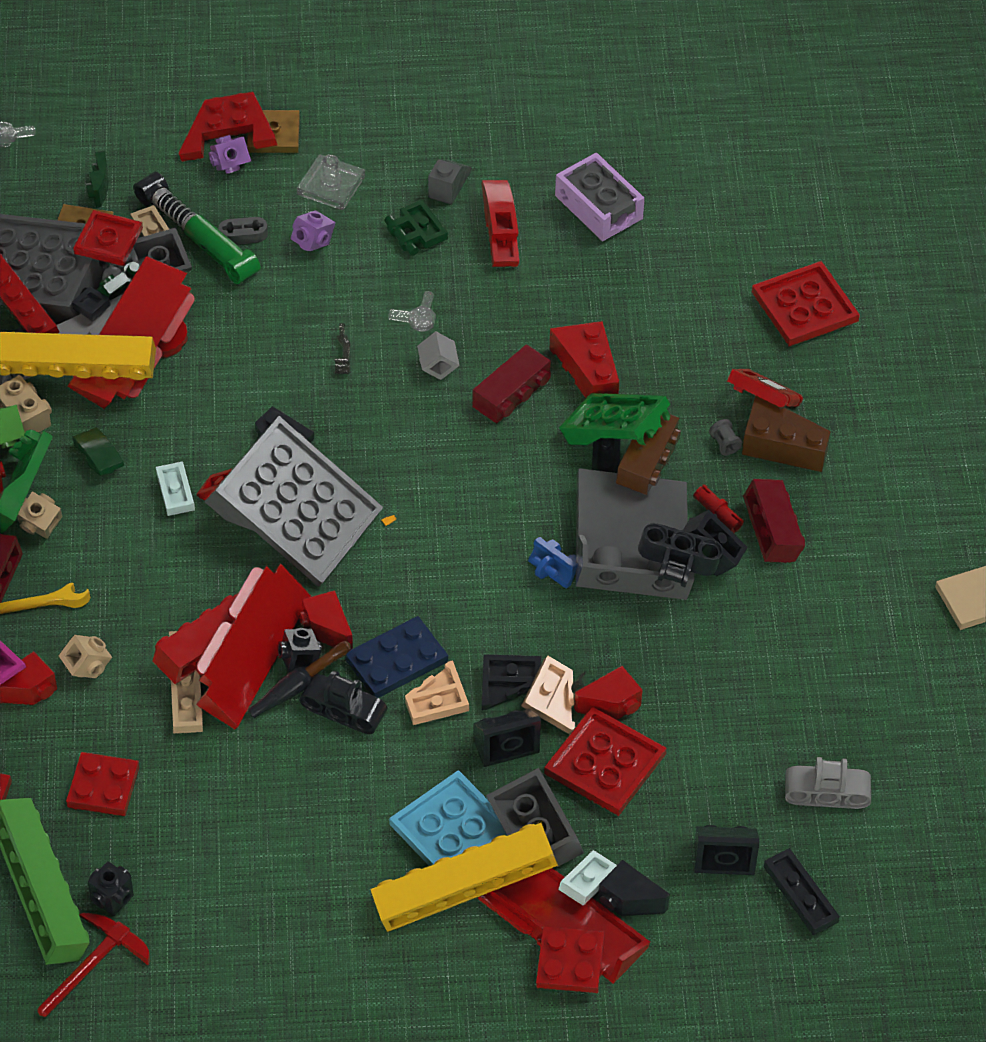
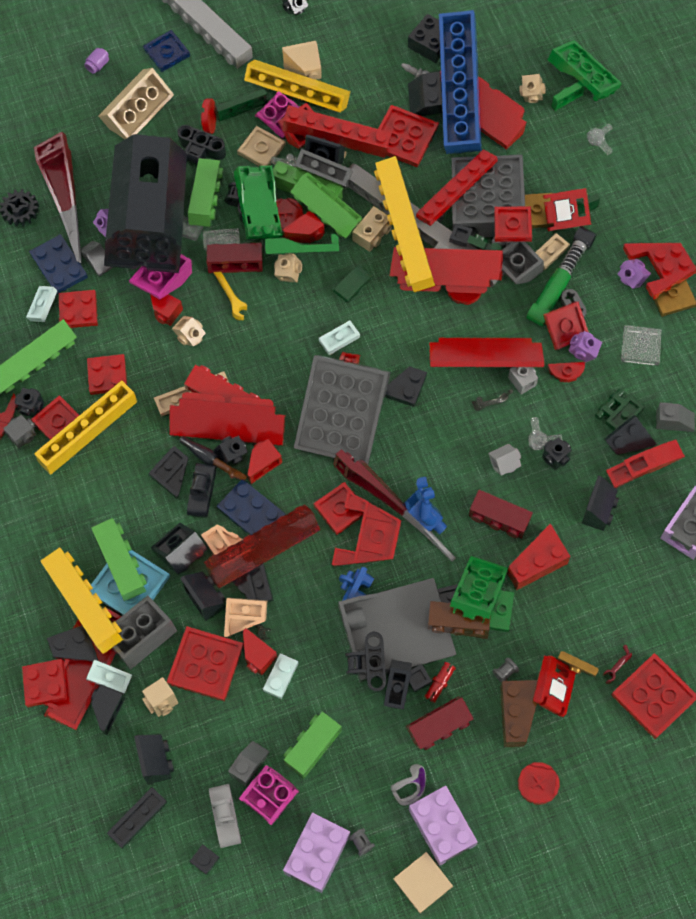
camera: 75 degrees right, 15 degrees up
(103, 188) = (563, 209): none -> red container
(152, 912) = (20, 431): none -> dark grey brick
(155, 861) = (54, 417): none -> red plate
(187, 820) = (86, 427): none -> yellow brick
(272, 240) = (564, 324): none -> red plate
(276, 333) = (485, 352): none -> red slope
(297, 736) = (170, 471): none -> black wing
(326, 307) = (523, 378): none -> light grey brick
(335, 264) = (566, 371): none -> red plate
(405, 507) = (367, 479): none -> dark red plate
(418, 818) = (119, 560): none -> bright green brick
(421, 750) = (179, 548): none -> black slope
(434, 552) = (333, 512): none -> red plate
(451, 302) = (556, 453): none -> black brick
(457, 225) = (629, 437): none -> black wing
(461, 646) = (262, 545): none -> clear red brick
(478, 453) = (423, 510): none -> blue torso
(490, 519) = (376, 536): none -> red wing
(525, 910) = (72, 645): none -> black wing
(538, 281) = (600, 505): none -> black slope
(643, 814) = (159, 698): none -> tan brick
(654, 682) = (280, 676): none -> light aqua plate
(746, 354) = (577, 665): none -> pearl gold plate
(761, 664) = (312, 744): none -> bright green brick
(764, 336) = (618, 665): none -> dark red piece
(766, 744) = (248, 763): none -> dark grey slope
(820, 728) = (266, 792): none -> dark pink slope
(838, 564) = (419, 778): none -> light grey piece
(879, 448) = (538, 783): none -> red tile
(879, 828) = (204, 859): none -> black plate
(906, 644) = (361, 842): none -> dark grey bush
(907, 694) = (316, 852): none -> lavender piece
(909, 552) = (442, 825): none -> lavender piece

